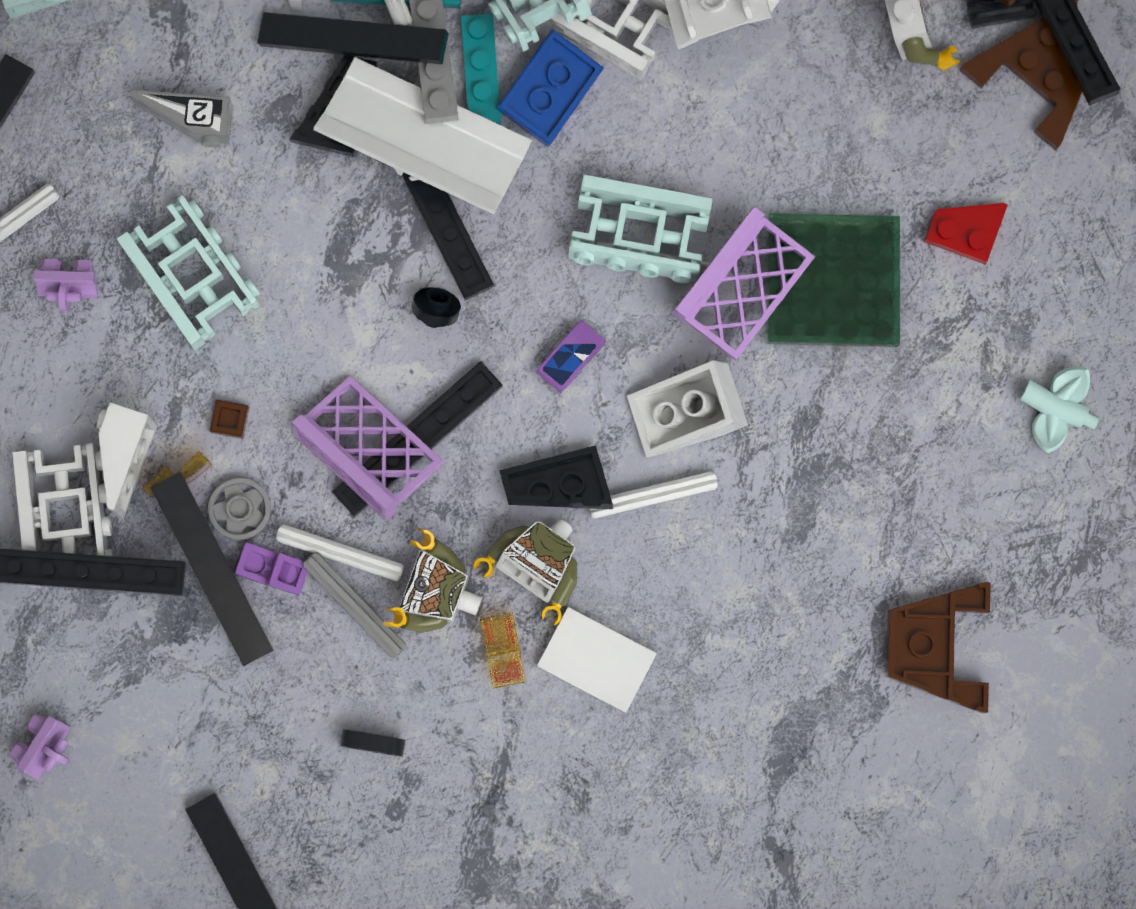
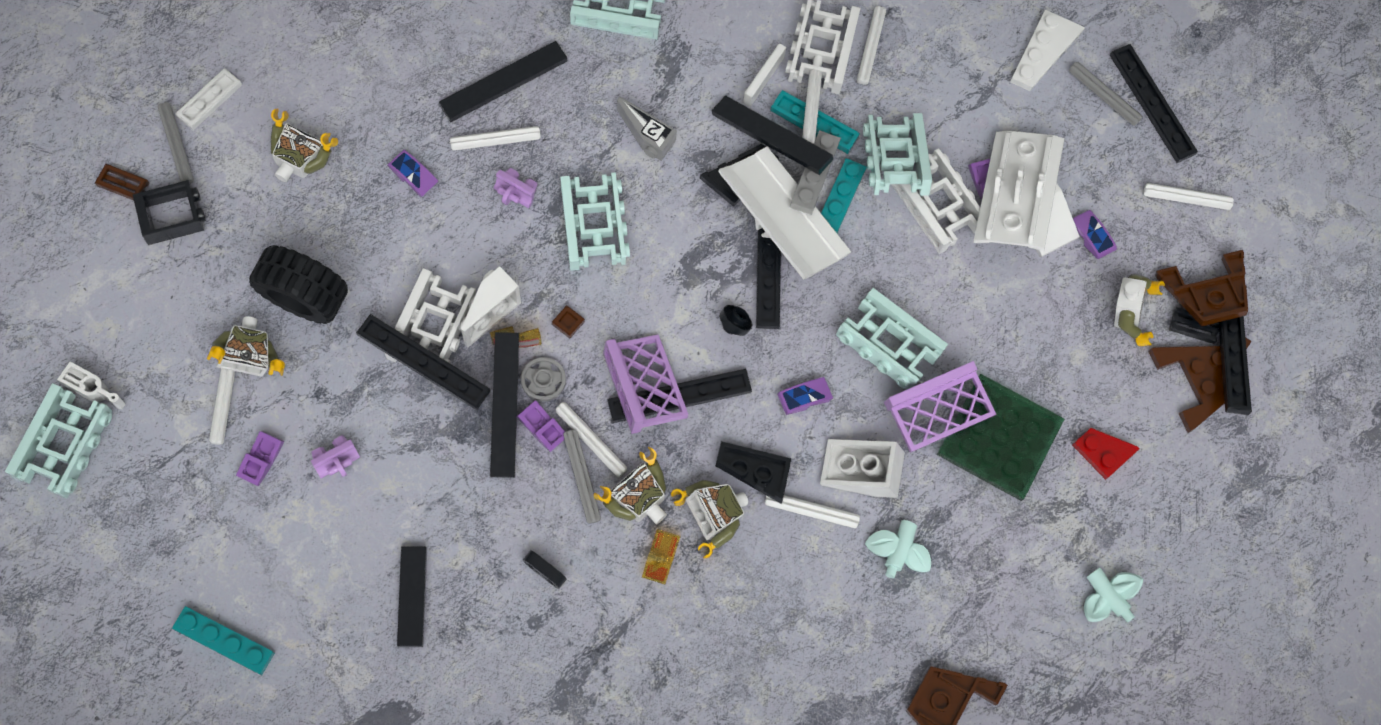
camera: 25 degrees right, 10 degrees down
(549, 88) = (878, 227): blue tile -> none
(596, 660) = (719, 595): white tile -> none
(782, 487) = (900, 549): none -> light aqua plant

